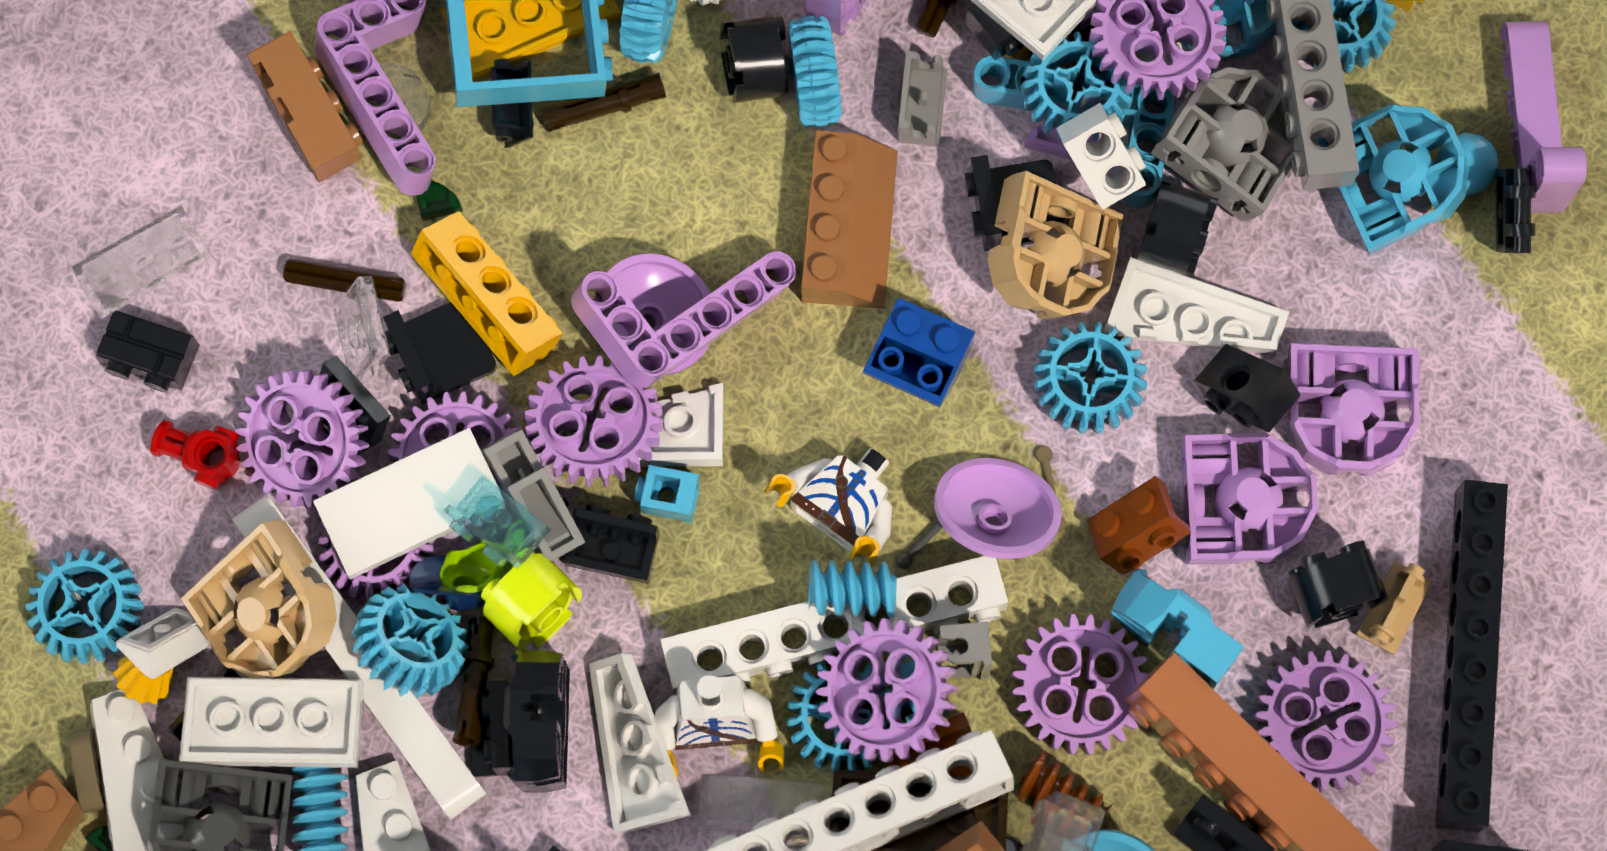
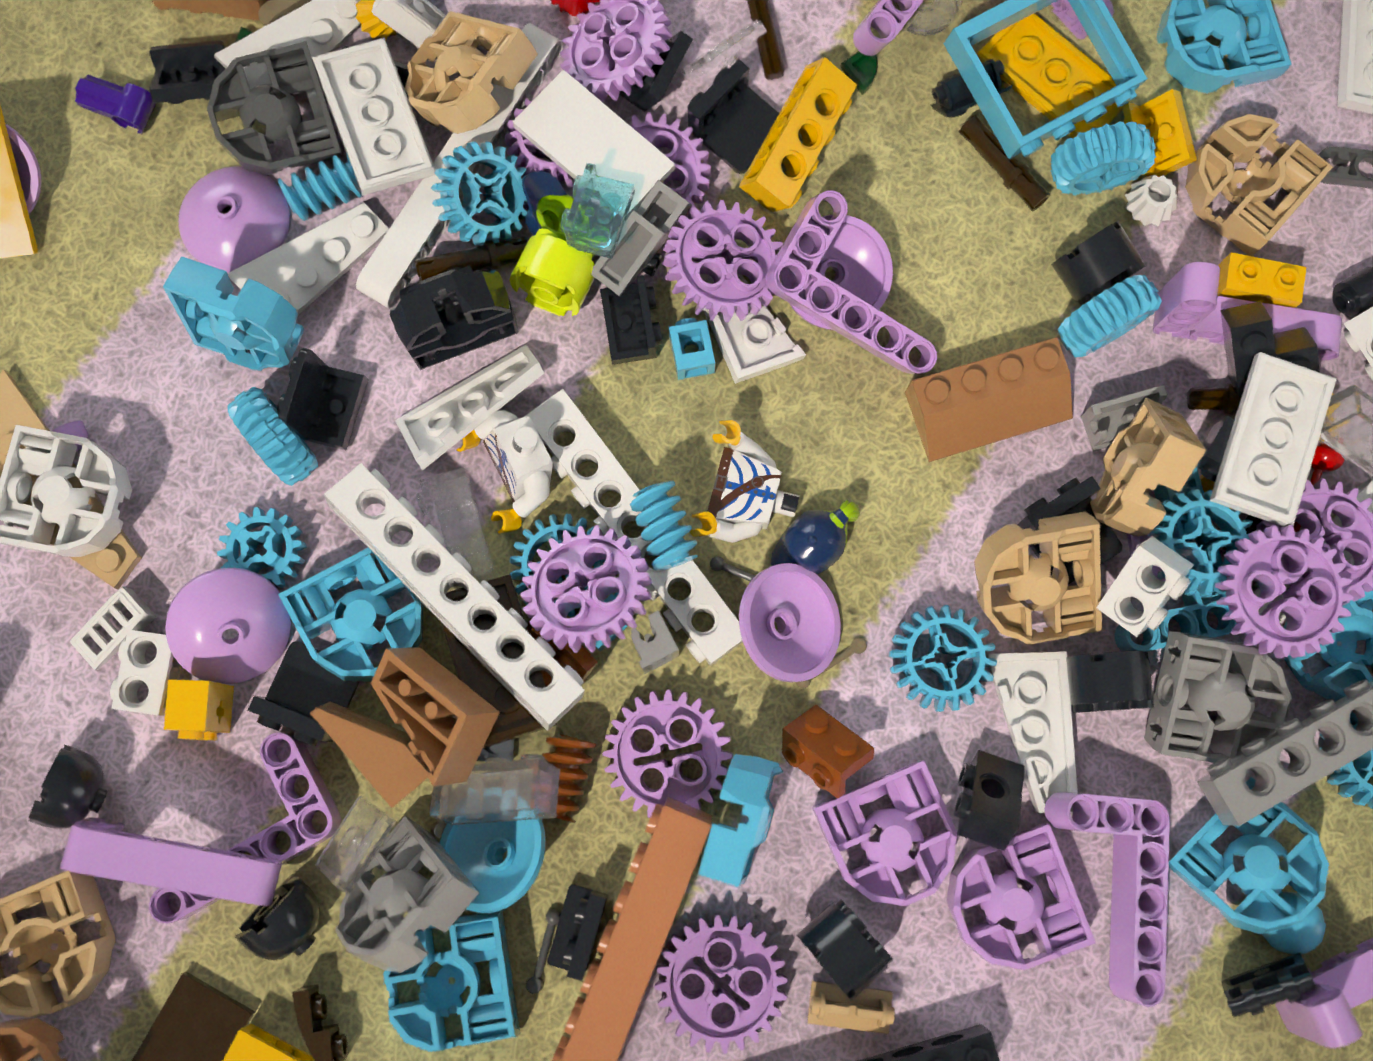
camera: 65 degrees right, 5 degrees up
(920, 352) = (898, 504): blue slope -> none
(920, 451) = (816, 538): none -> dark blue hair
(984, 104) = (1148, 452): none -> tan connector
(1378, 287) = (1130, 919): none -> lavender beam

